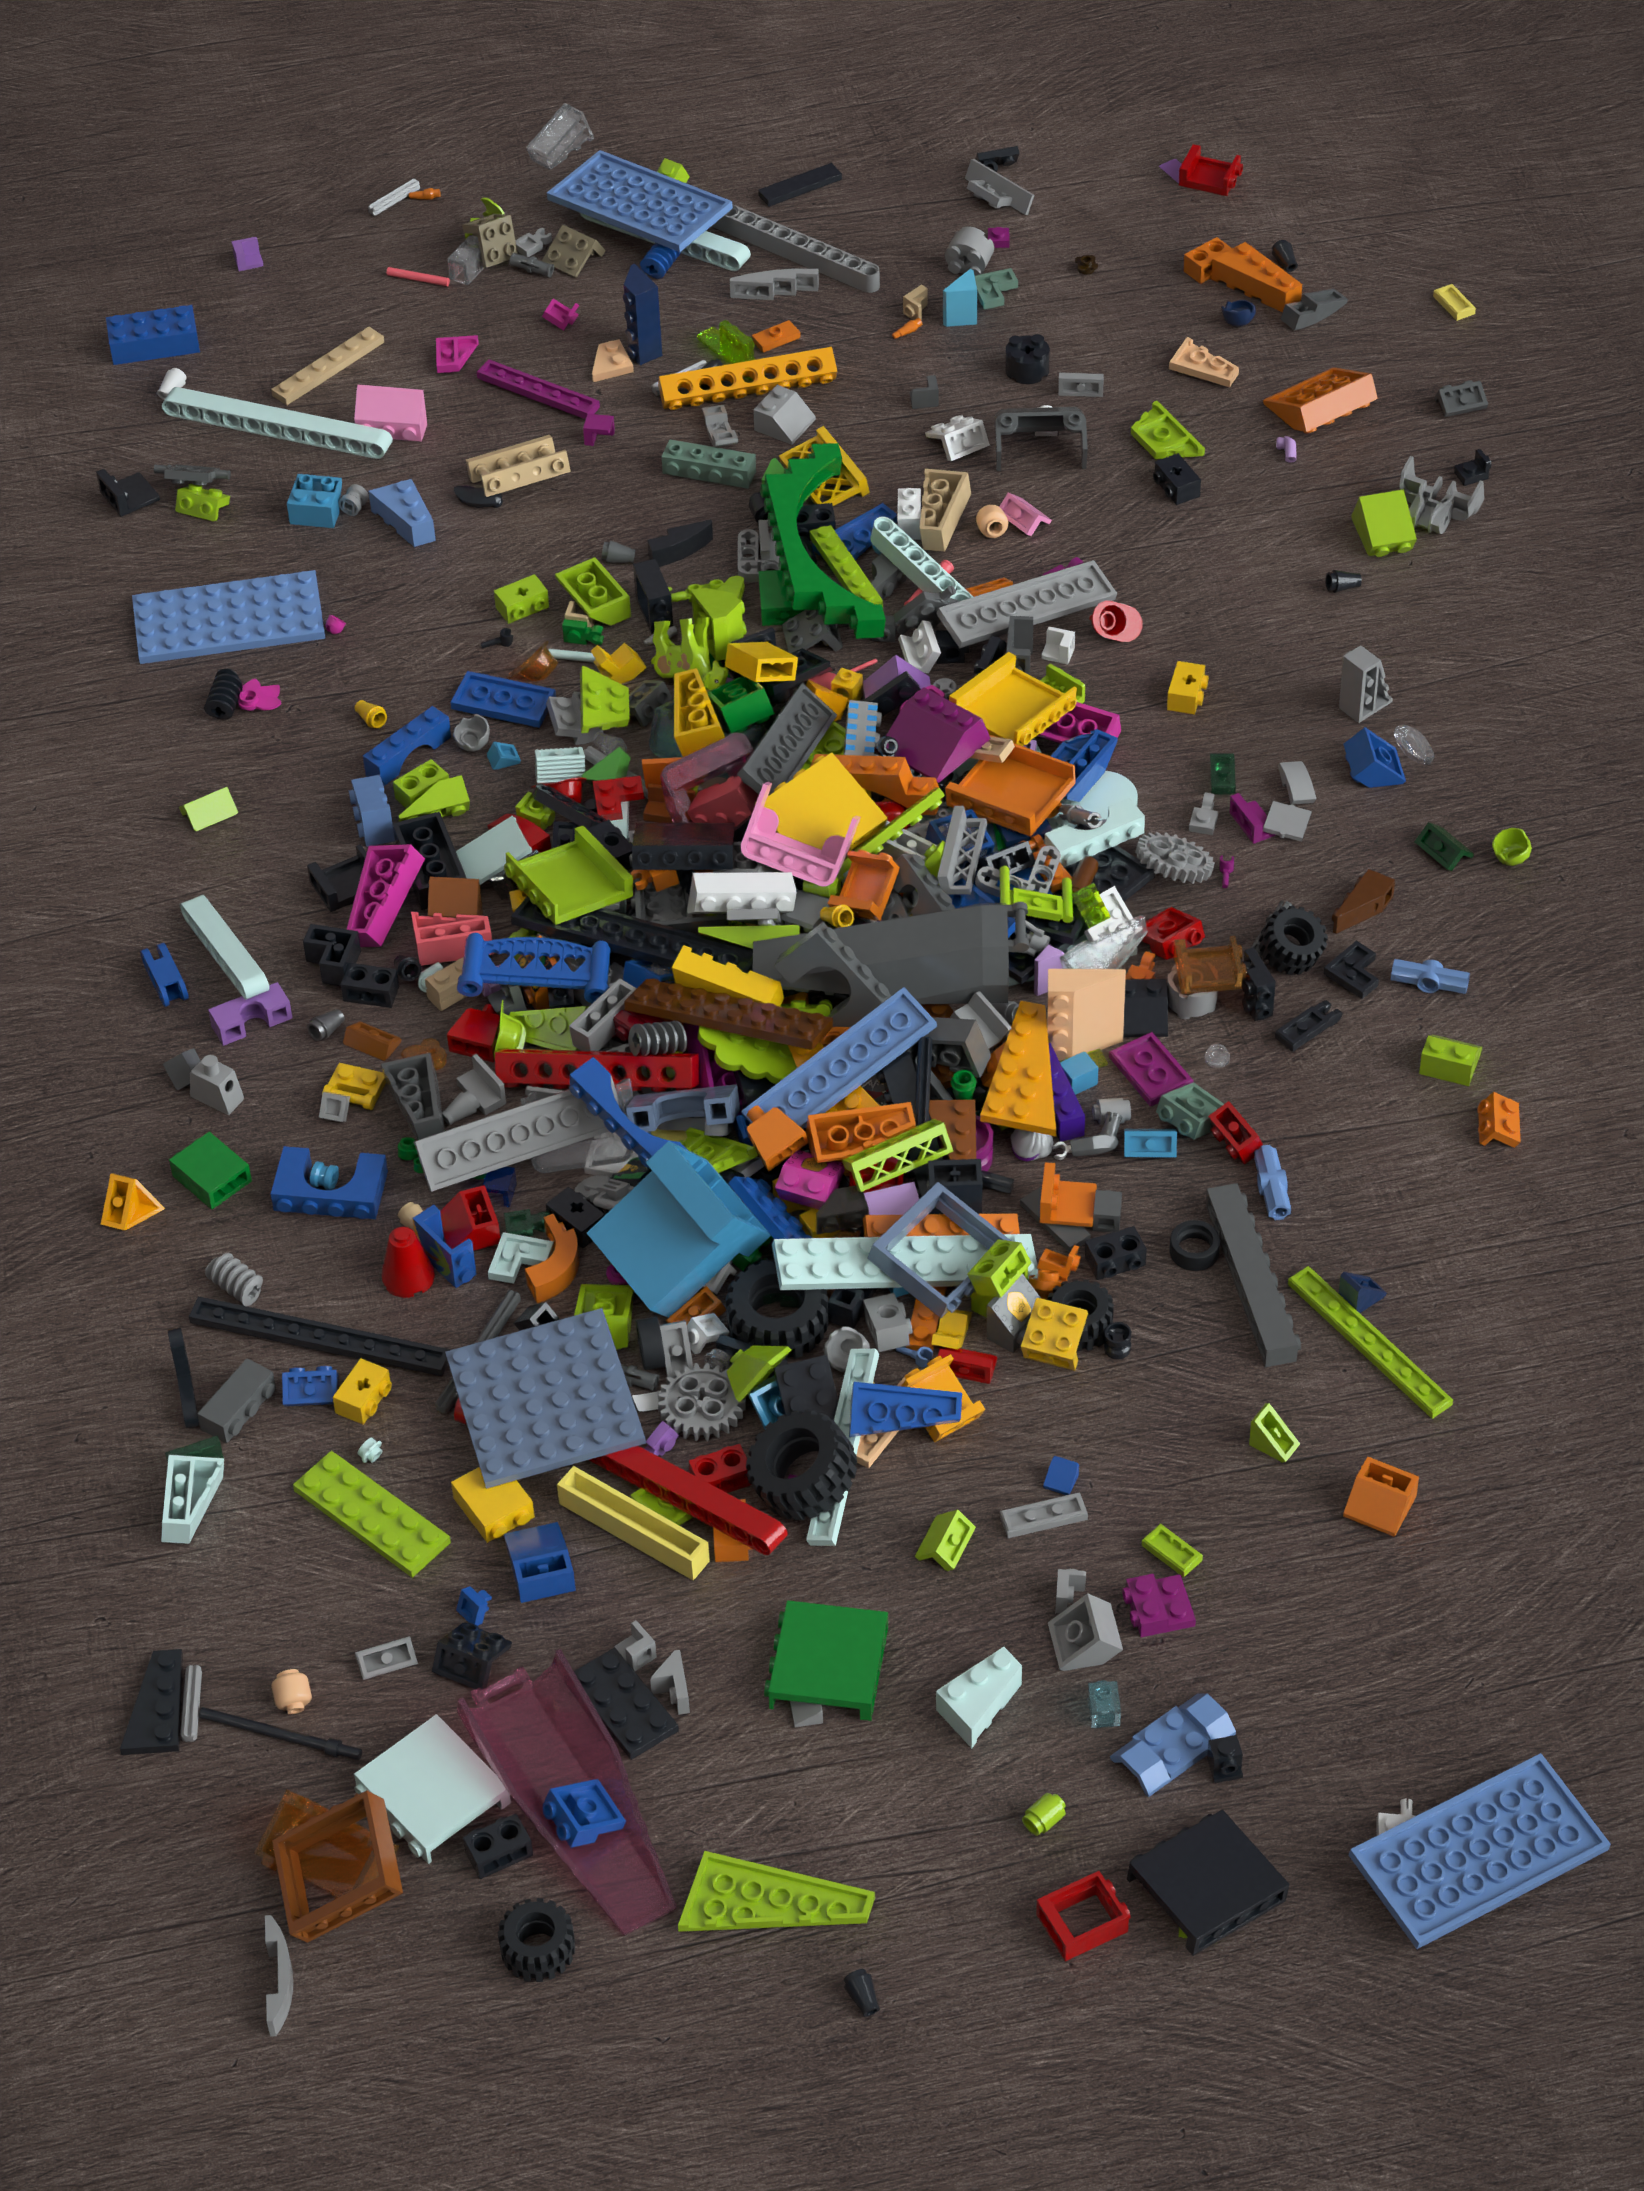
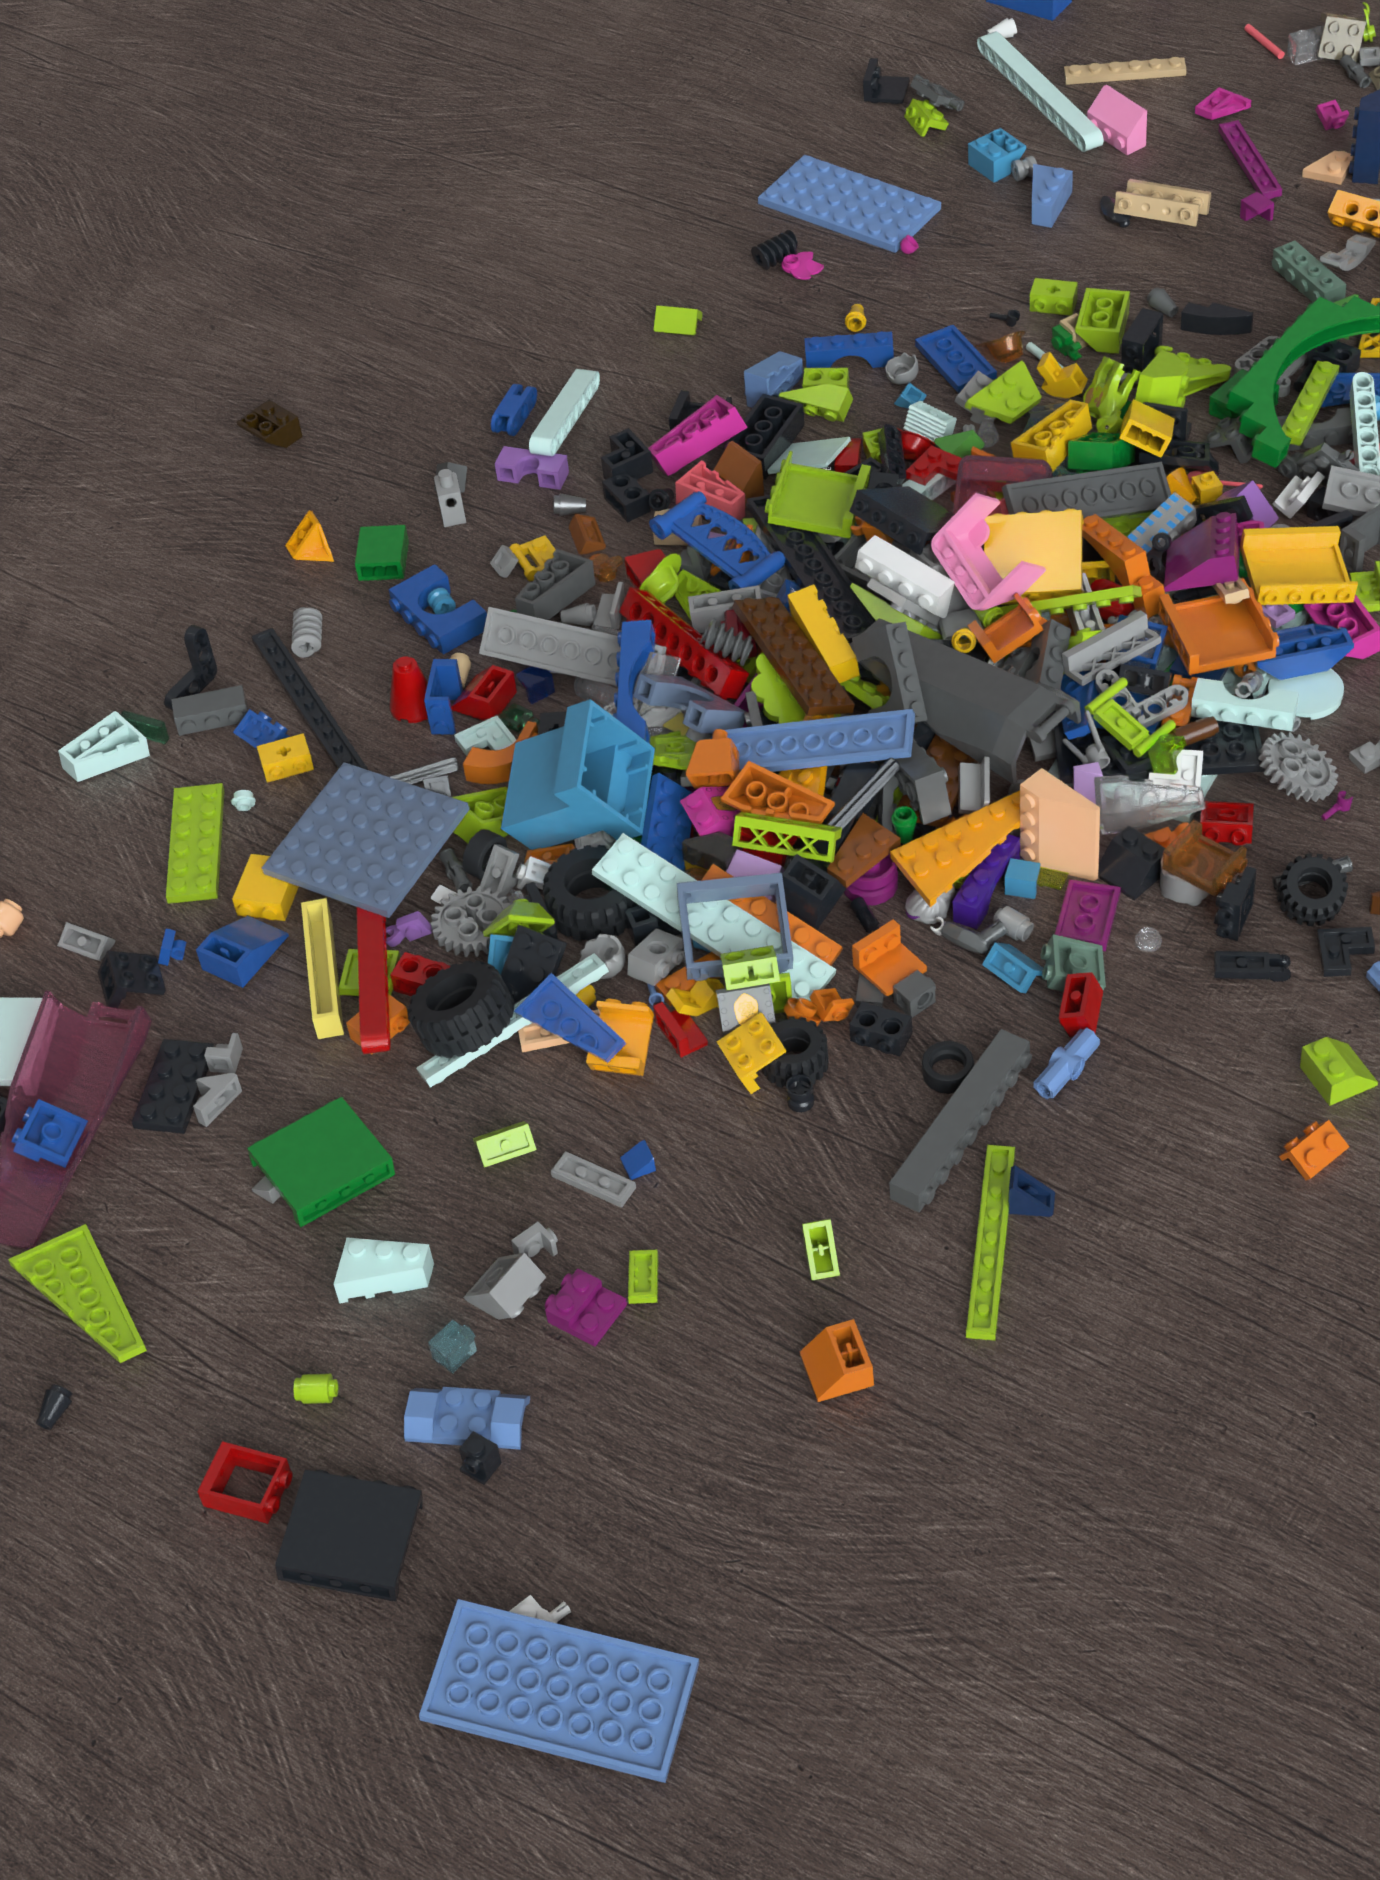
camera: 50 degrees right, 0 degrees up
(746, 1082) = (753, 716): none -> flat silver plate

